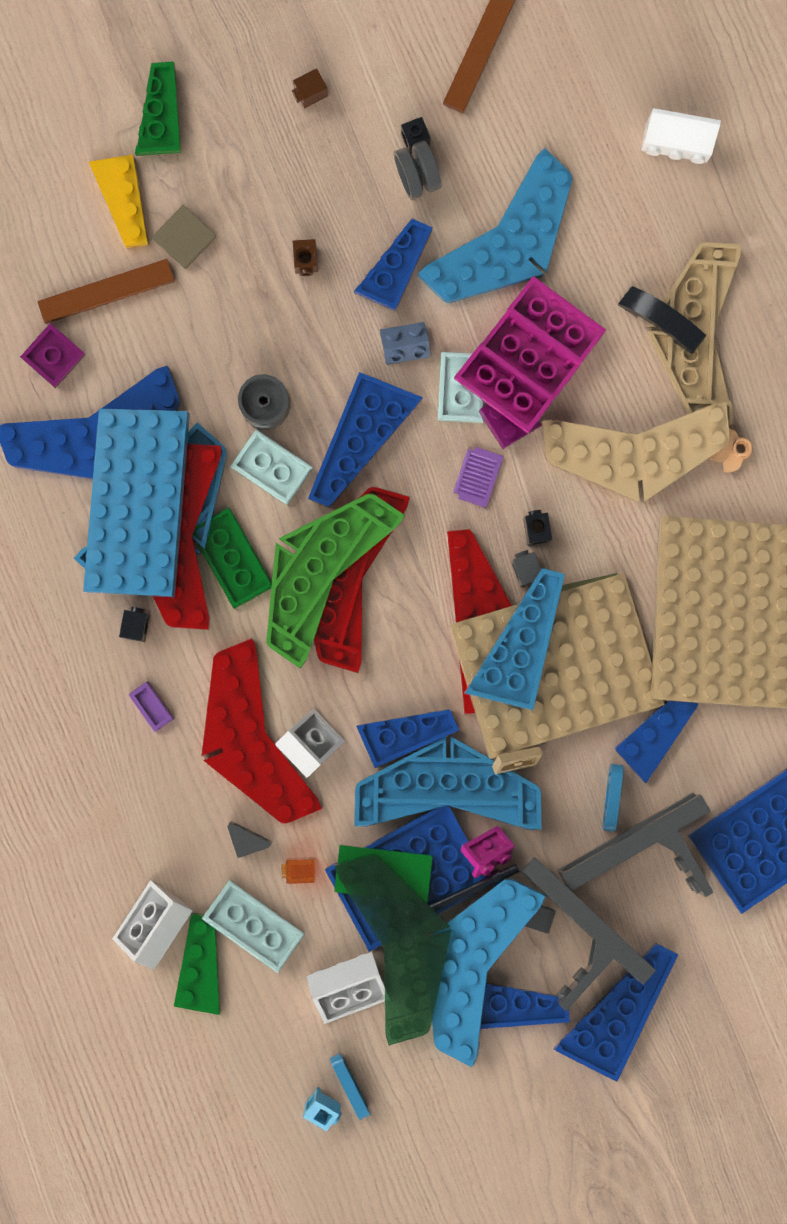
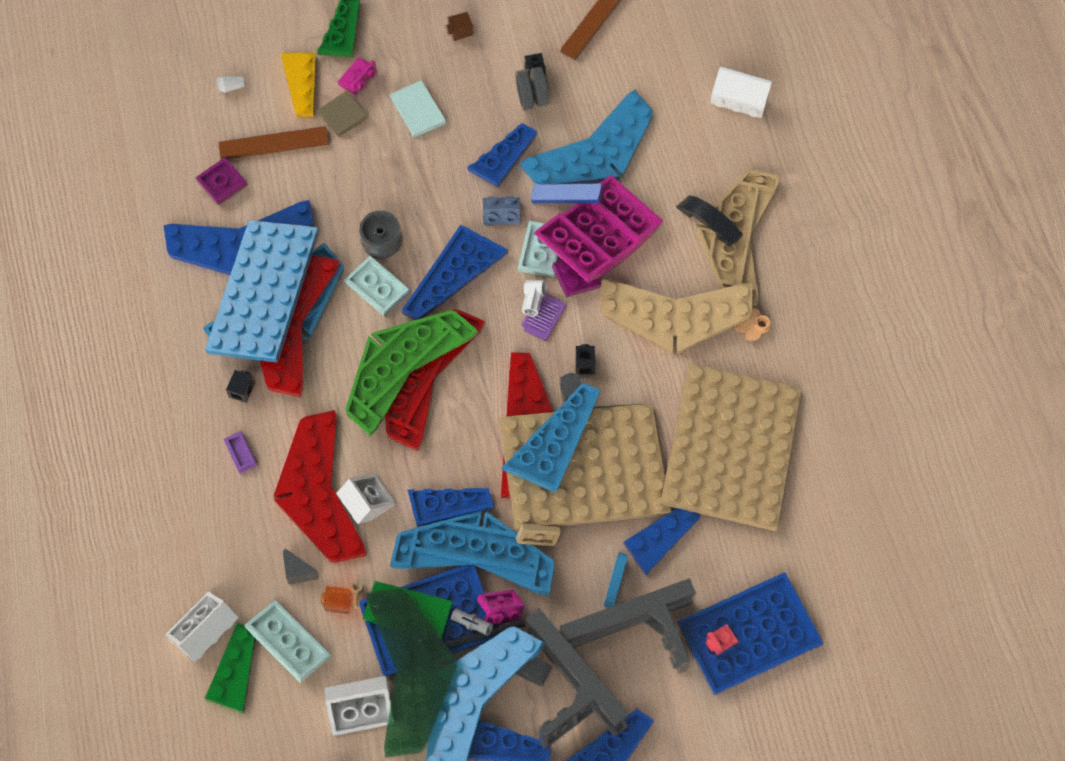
camera: 15 degrees right, 20 degrees down
(33, 215) = (229, 83): none -> white cone
(192, 179) = (357, 75): none -> dark pink bracket
(233, 560) = (332, 350): green tile -> none
(276, 215) = (417, 109): none -> light aqua tile
(301, 248) = (433, 132): reddish brown brick -> none
(320, 859) = (356, 593): none -> tan hand
(459, 878) = (483, 626): none -> light grey pin
(464, 448) = (534, 291): none -> white piece
(484, 311) = (567, 193): none -> tile
(742, 853) = (721, 640): none -> coral bracket

